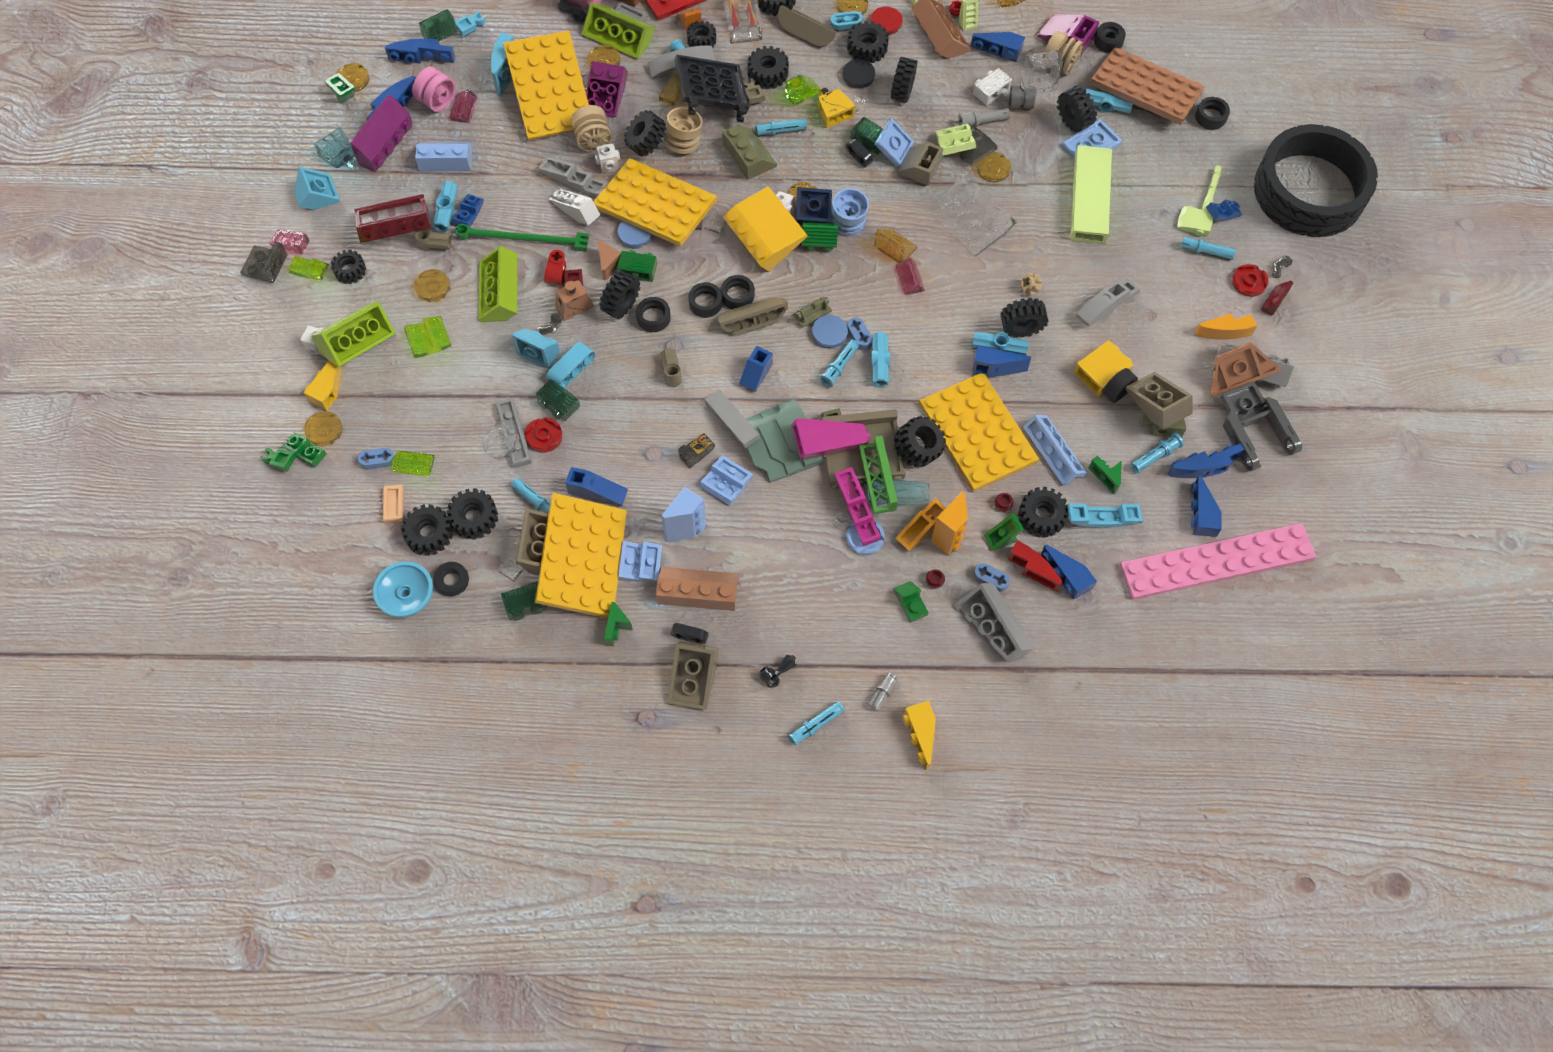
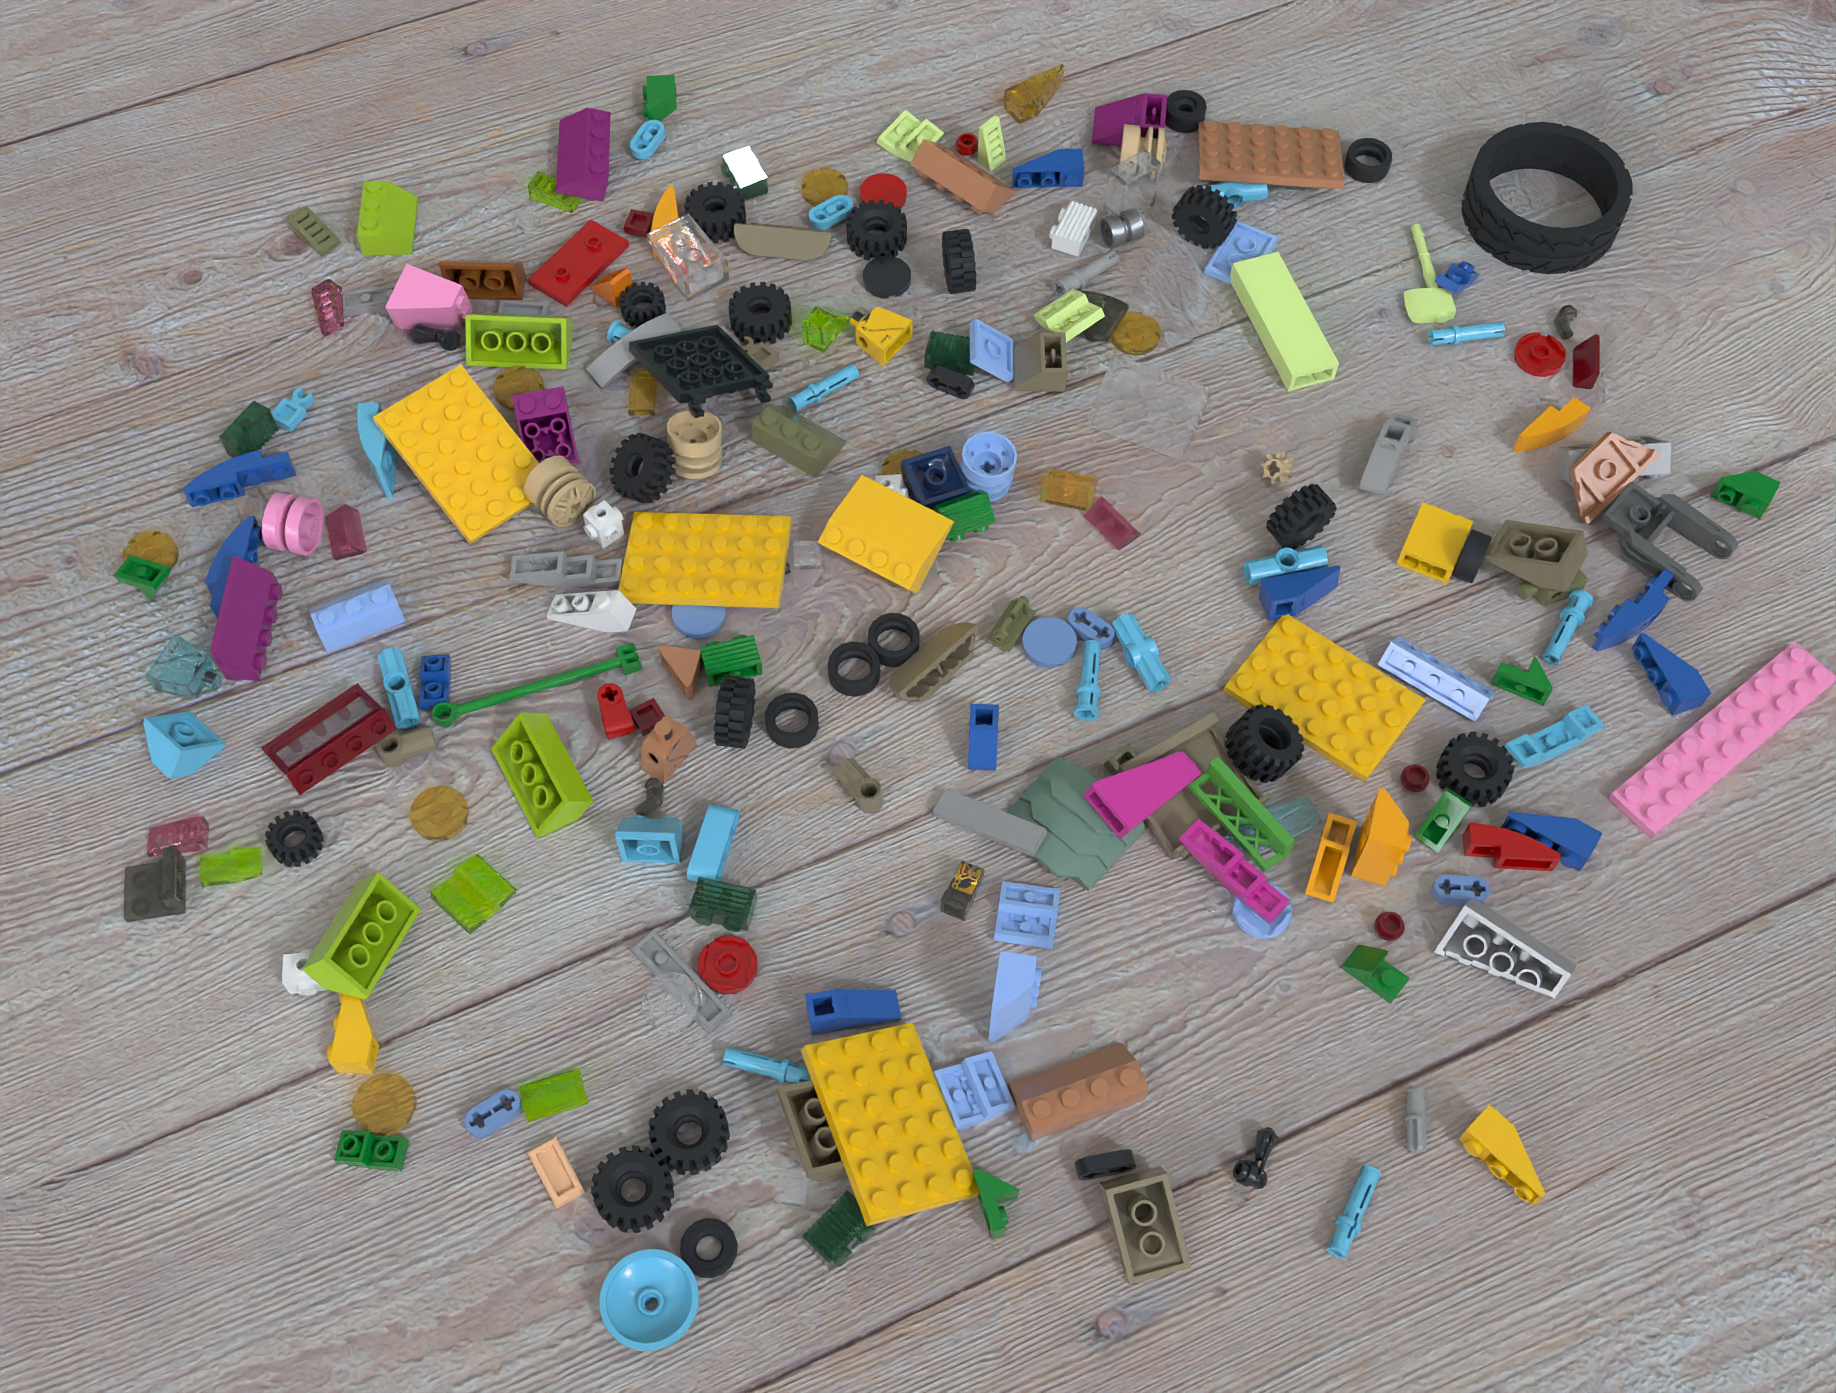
camera: 25 degrees left, 5 degrees down
(280, 460) = (342, 1184): green plate -> none
(1331, 419) = (1747, 492): none -> green slope

